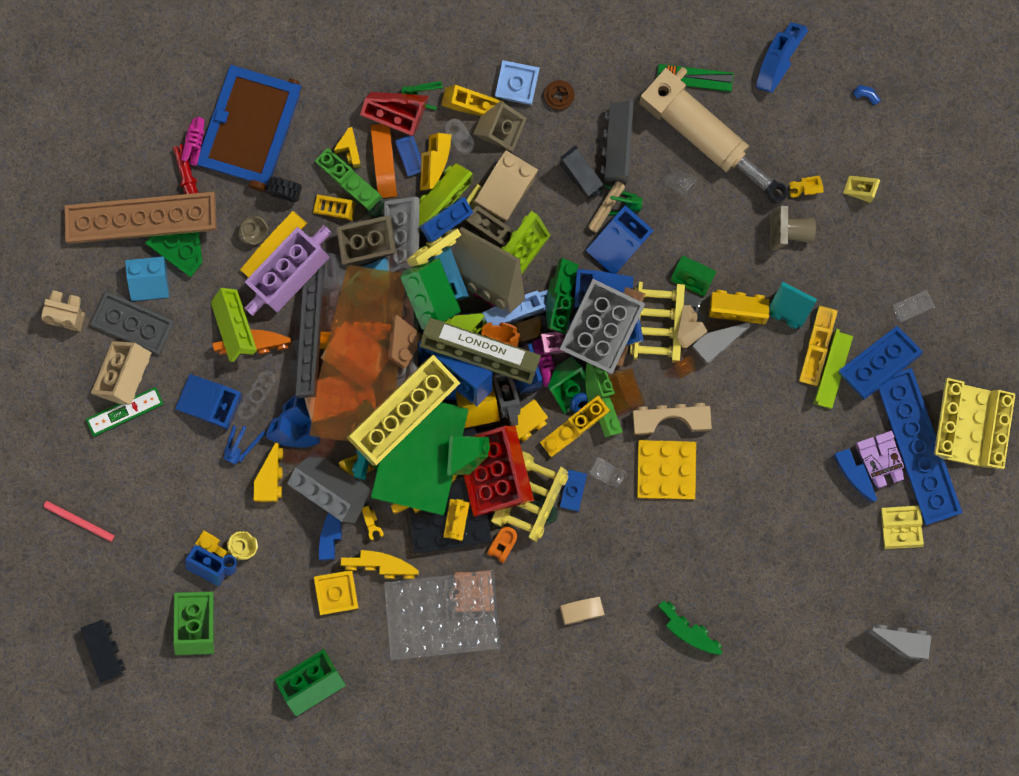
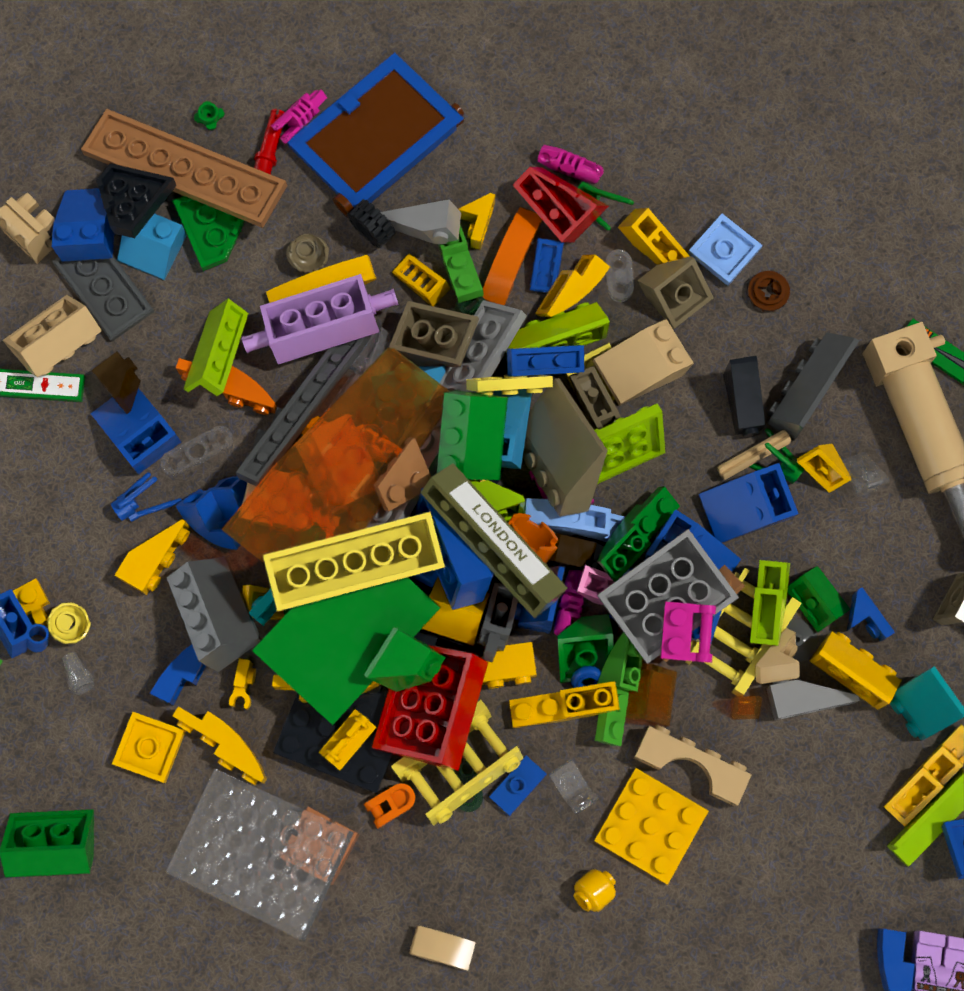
camera: 30 degrees right, 5 degrees down
(98, 288) = (82, 227): none -> blue slope
(121, 256) = (132, 197): none -> black plate
(129, 168) = (209, 108): none -> green plate
(182, 377) = (119, 379): none -> dark brown slope
(266, 574) = (78, 675): none -> clear cone
(323, 168) = (430, 222): none -> light grey slope
(388, 79) = (570, 164): none -> dark pink hinge
(620, 344) = (678, 631): none -> dark pink plate
(653, 526) = (594, 890): none -> yellow head
(654, 190) = (825, 467): none -> yellow slope
(665, 295) = (769, 602): none -> lime slope
(724, 267) = (864, 609): none -> blue slope

